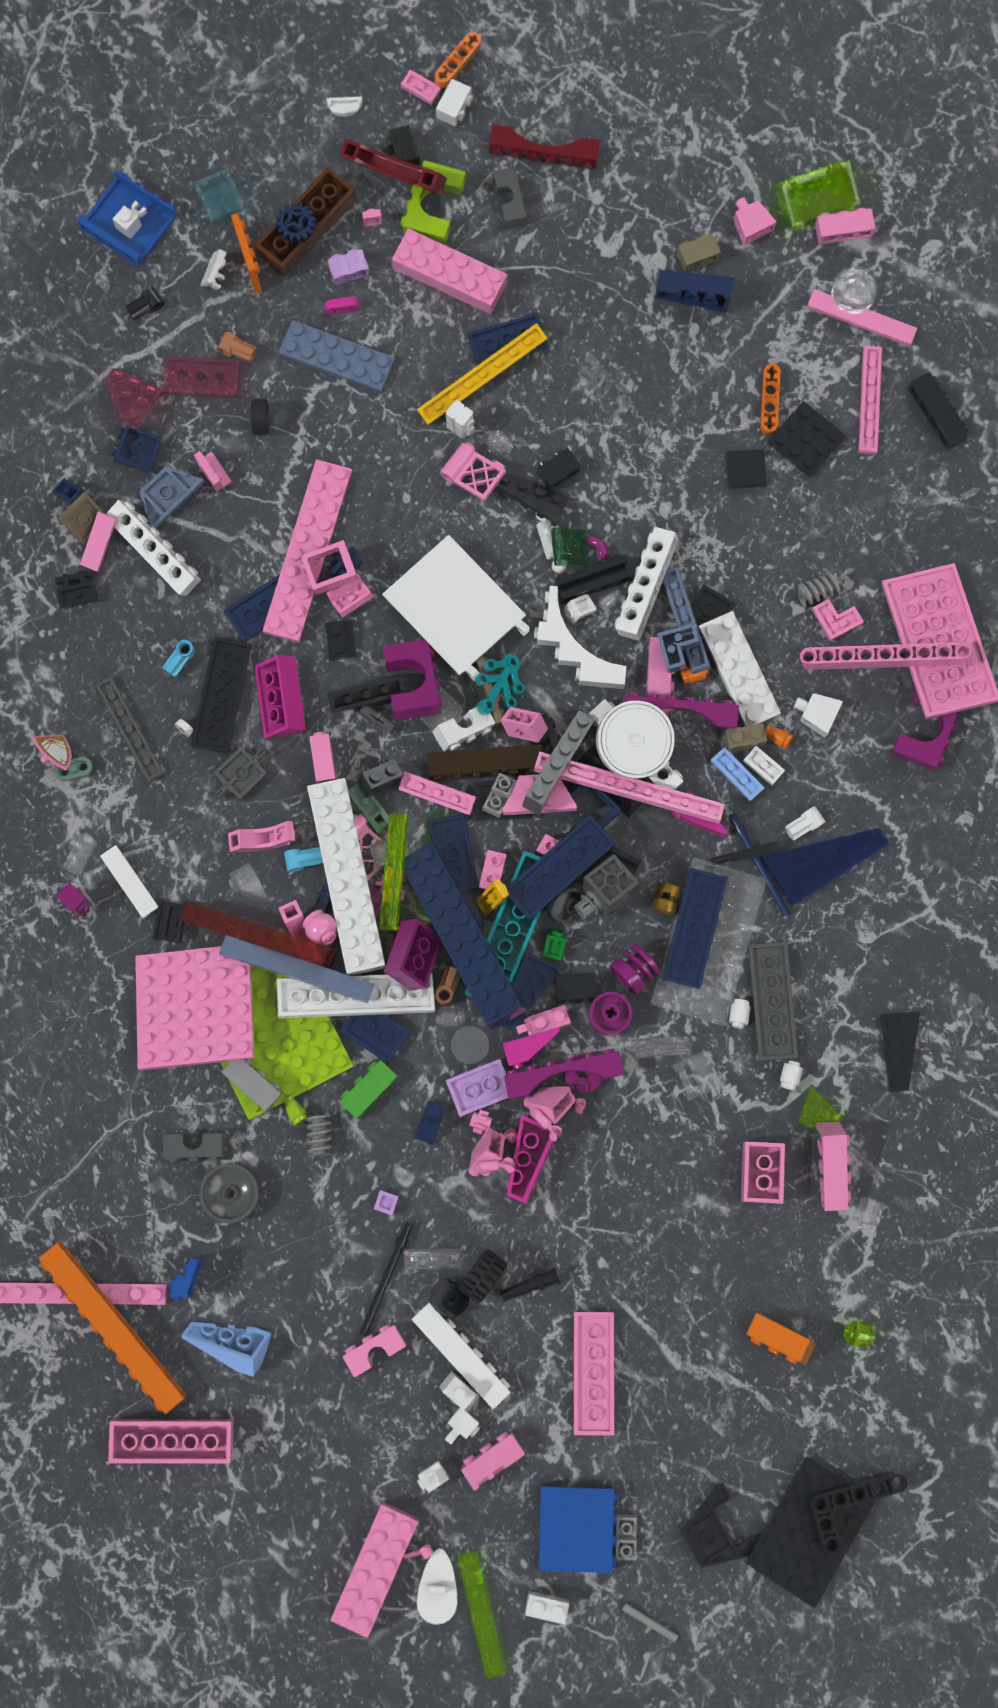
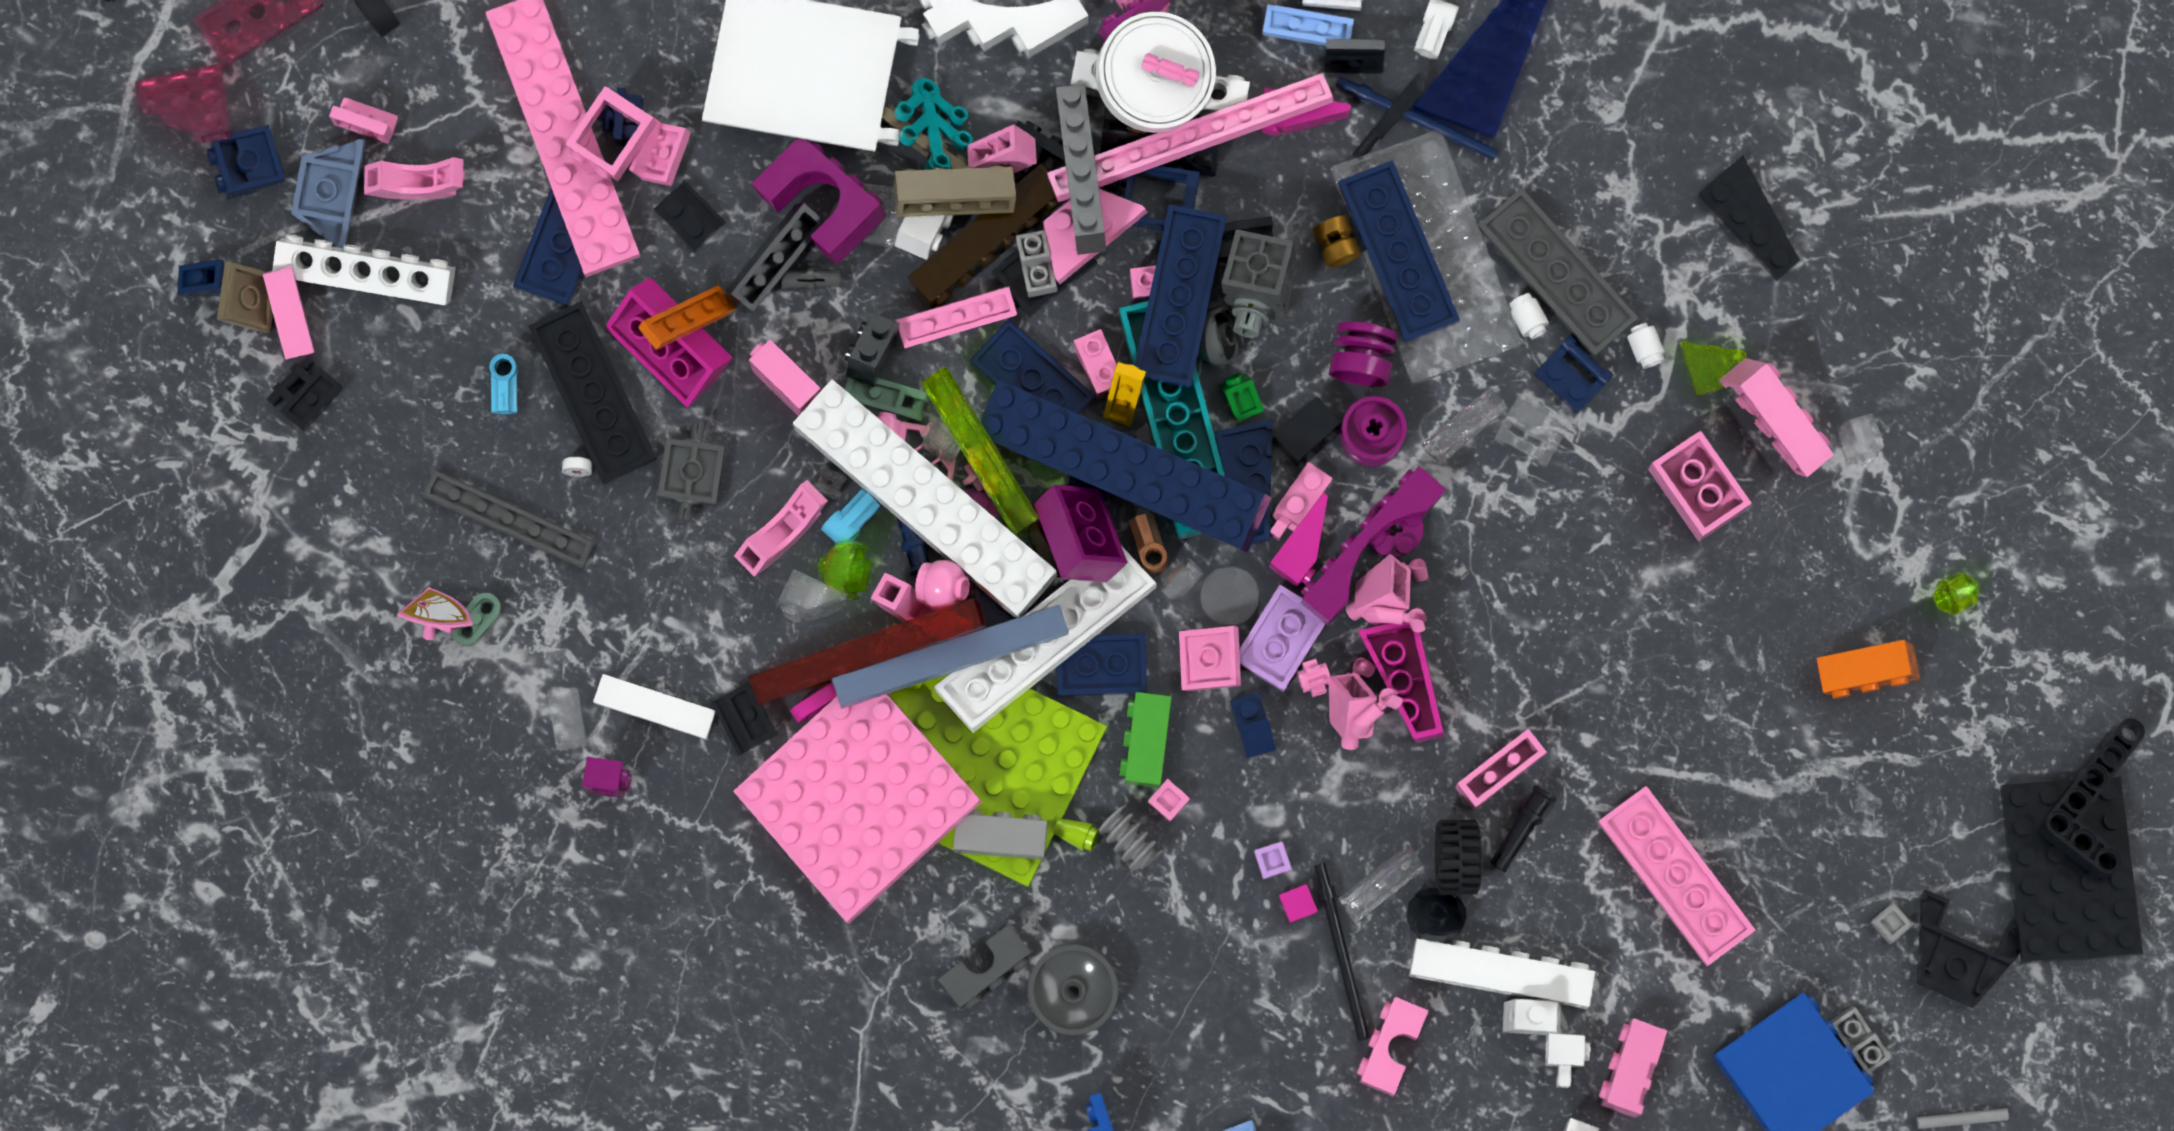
camera: 35 degrees left, 0 degrees up
(209, 941) = (813, 704): none -> dark pink beam
(212, 519) = (414, 181): none -> bright pink arch
(280, 883) = (846, 567): none -> clear neon green cylinder
(295, 691) = (686, 317): none -> orange plate
(356, 1129) = (1168, 800): none -> bright pink plate
(382, 1235) = (1298, 903): none -> dark pink tile
(433, 1071) = (1210, 658): none -> bright pink plate
(483, 726) = (954, 191): none -> dark tan brick
(542, 1245) = (1500, 769): none -> bright pink brick
(642, 744) = (1170, 70): none -> bright pink axle
(691, 1486) = (1891, 923): none -> light grey tile
(734, 1062) = (1566, 381): none -> dark blue plate
(749, 807) = (1354, 56): none -> black plate

